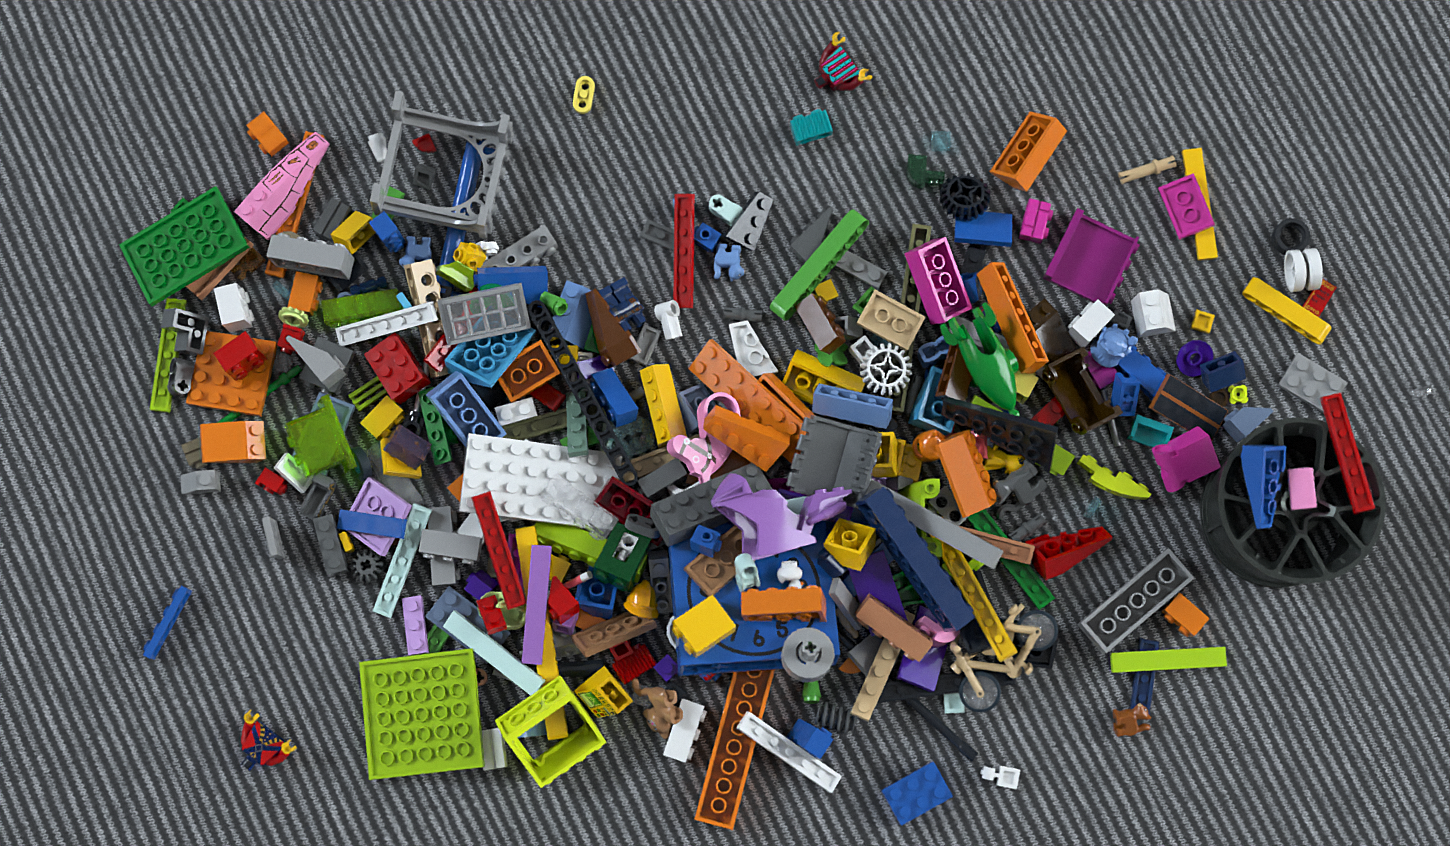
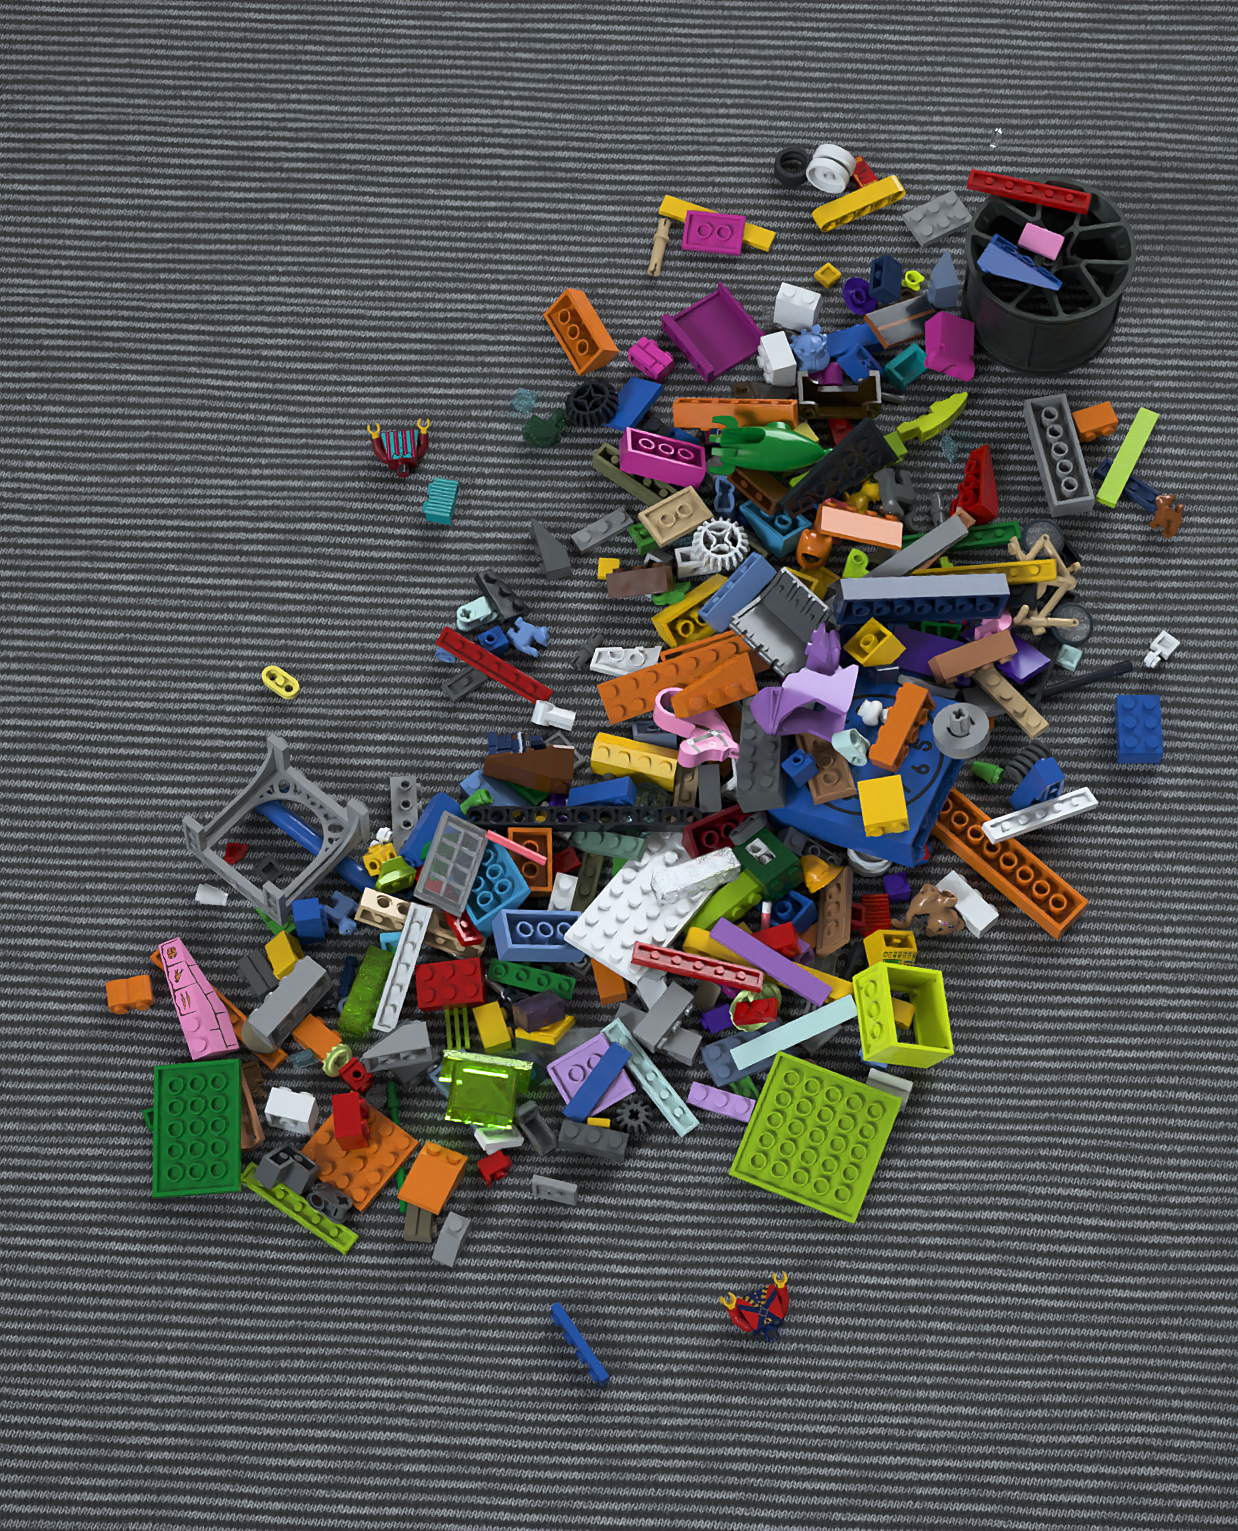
camera: 60 degrees left, 15 degrees down
(526, 355) = (516, 847): none -> coral bar
(819, 264) = (581, 557): bright green beam -> none

